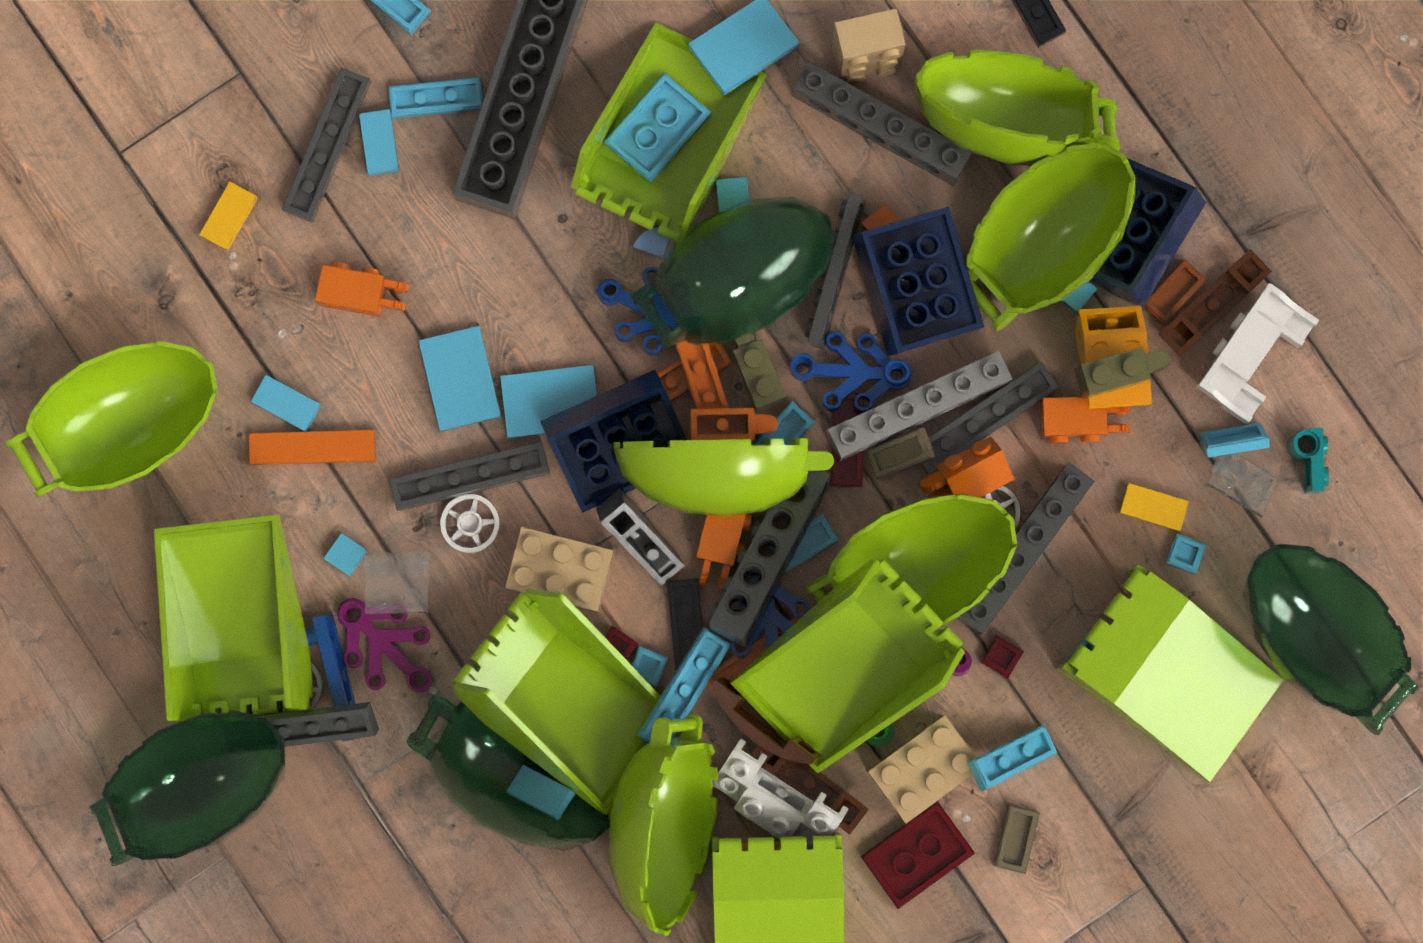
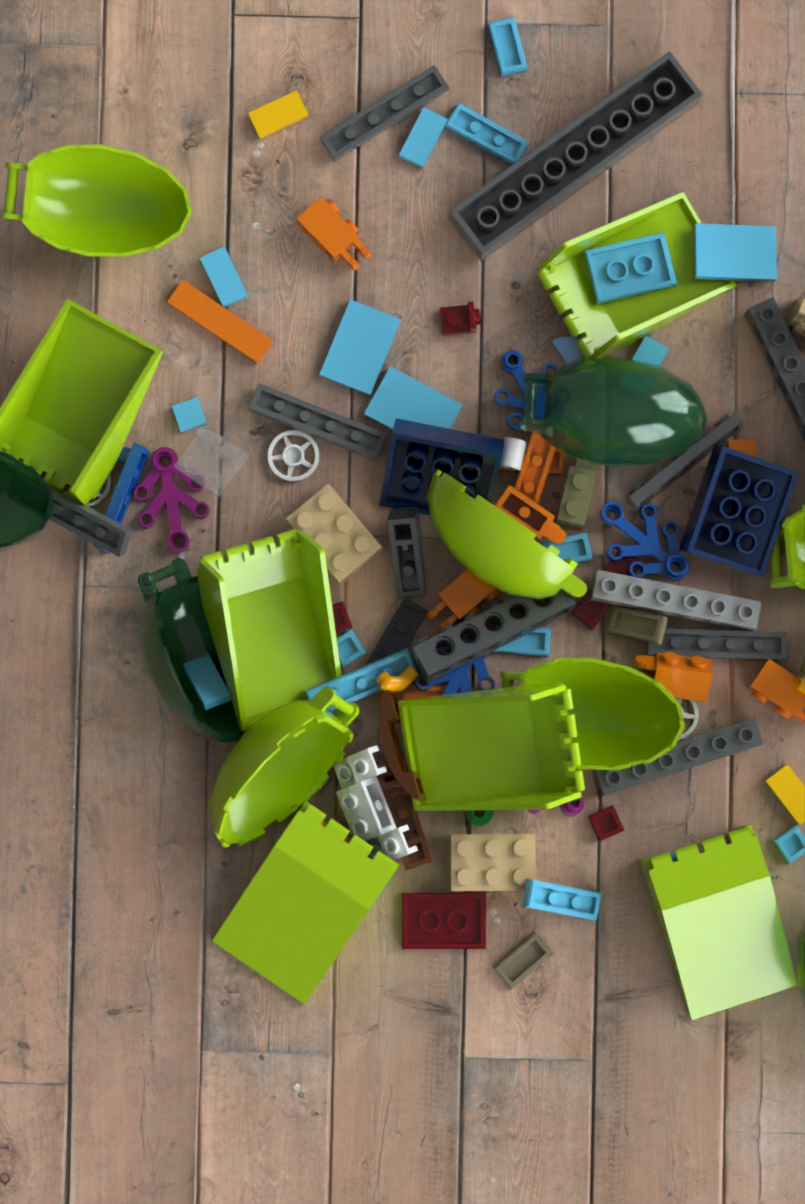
camera: 25 degrees right, 0 degrees up
(533, 287) = (459, 319): none -> dark red bracket
(672, 377) = (512, 454): none -> white piece
(718, 666) = (397, 683): none -> light orange arm

